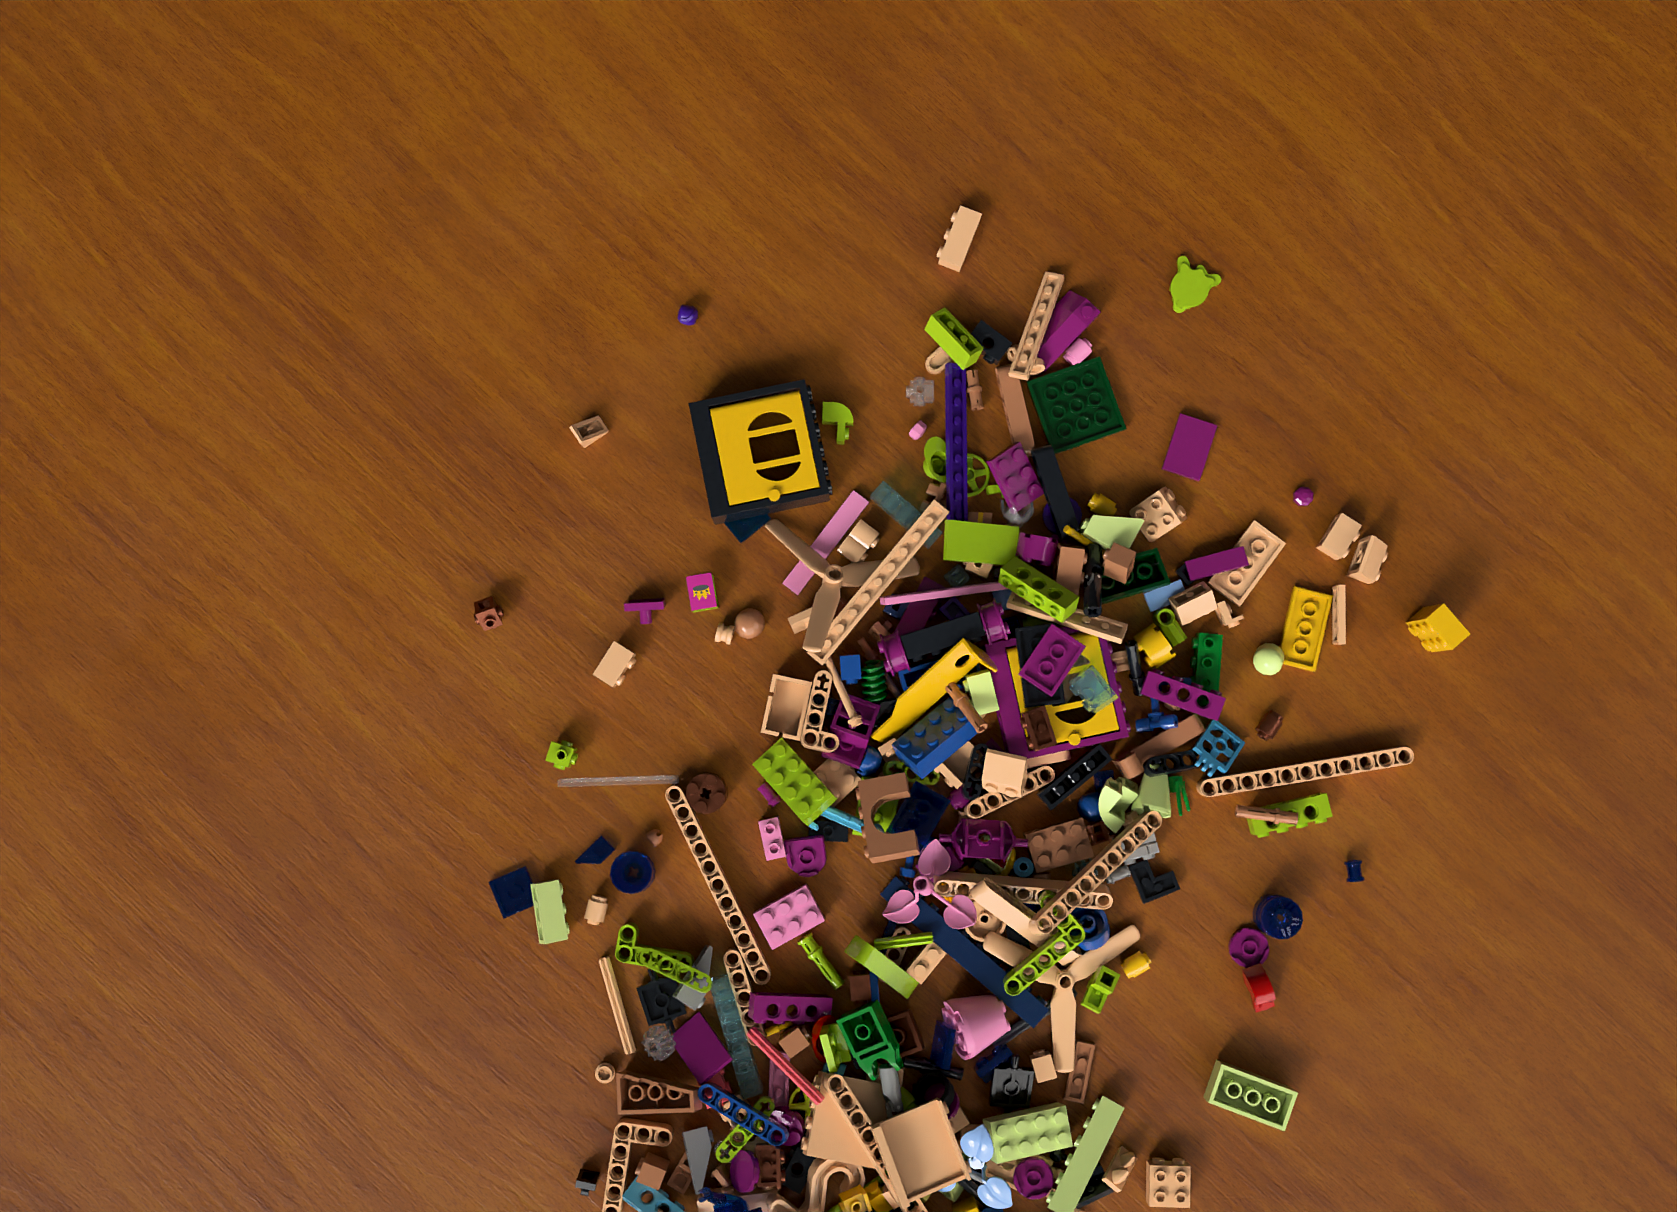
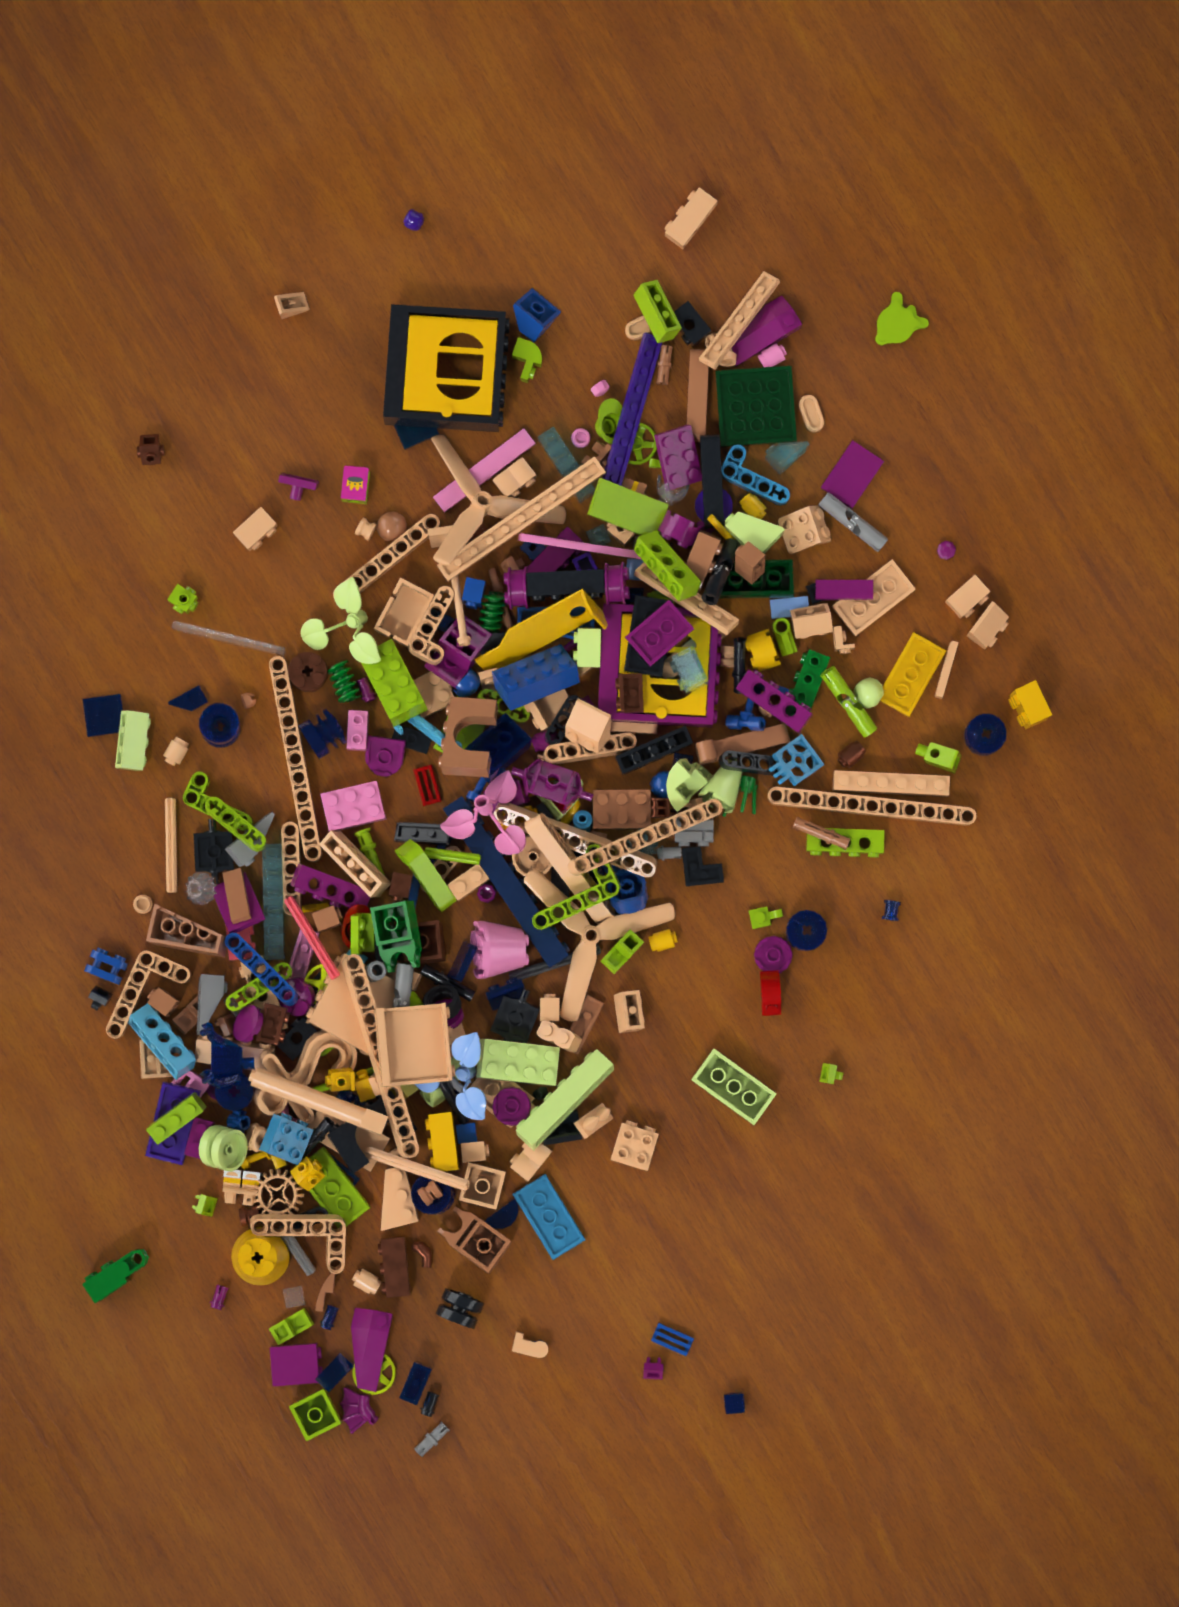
camera: 15 degrees right, 0 degrees up
(578, 1139) = (101, 956): none -> blue brick
(697, 1042) = (236, 895): none -> nougat tile
(726, 709) = (346, 597): none -> yellowish green plant
(738, 852) = (323, 733): none -> clear blue wheel
(745, 664) = (392, 551): none -> light nougat beam
(745, 793) = (343, 682): none -> green piece
(807, 975) = (355, 863): none -> light nougat brick
(832, 375) = (534, 314): none -> blue slope
(864, 925) = (421, 833): none -> black tile
(865, 887) = (424, 802): none -> red tile
(865, 1082) = (379, 967): none -> light grey brick
(912, 484) = (580, 438): none -> bright pink tile
(923, 385) = (612, 359): clear brick -> none
(946, 966) = (486, 893): none -> magenta tile
(961, 701) = (567, 650): nougat pin -> none
(1065, 1094) = (559, 1036): none -> light nougat brick
(1097, 478) = (757, 479): none -> dark azure beam
(1119, 446) = (785, 454): none -> clear light blue slope
(1124, 1047) = (629, 1011): none -> light nougat brick
(1131, 398) = (811, 413): none -> light nougat tile
(1218, 499) = (864, 530): none -> light grey piece
(1227, 913) = (761, 917): none -> lime plate
(1260, 679) = (853, 708): none -> lime piece
(1318, 743) = (891, 783): none -> light nougat brick
(1341, 1053) = (829, 1073): none -> lime tile
(1367, 703) = (947, 759): none -> lime torso
(1386, 669) = (982, 745): none -> clear blue wheel

